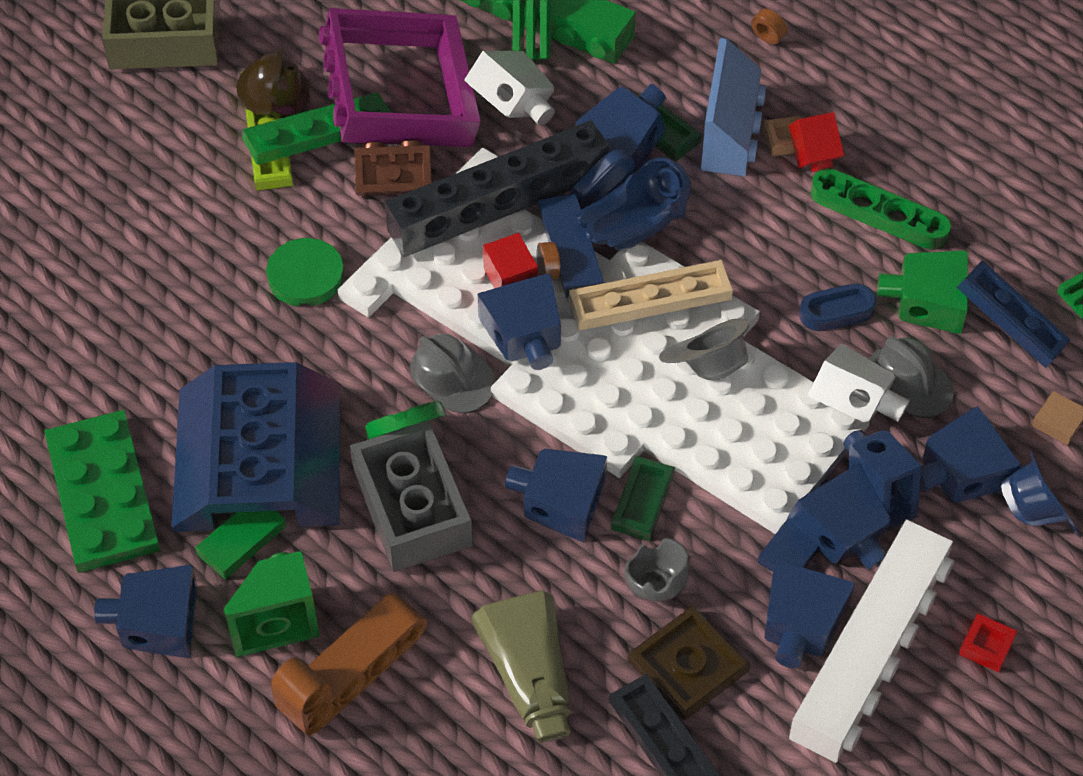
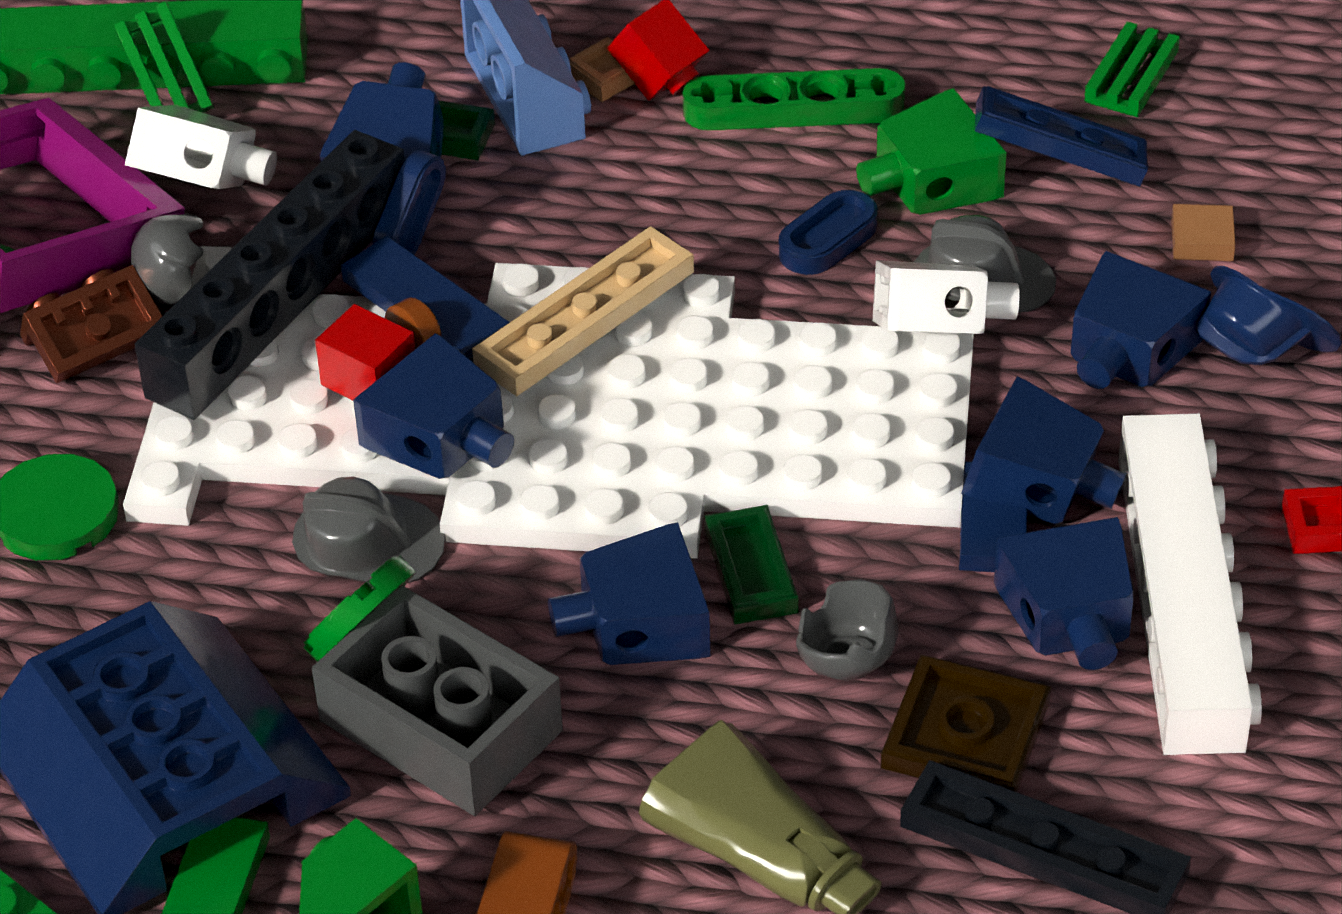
camera: 30 degrees left, 10 degrees down
(451, 146) = (164, 256): none -> dark grey hair
(639, 205) = (485, 211): dark blue hair -> none
(713, 352) = (724, 333): dark grey piece -> none
(890, 470) = (1057, 359): dark blue torso -> none

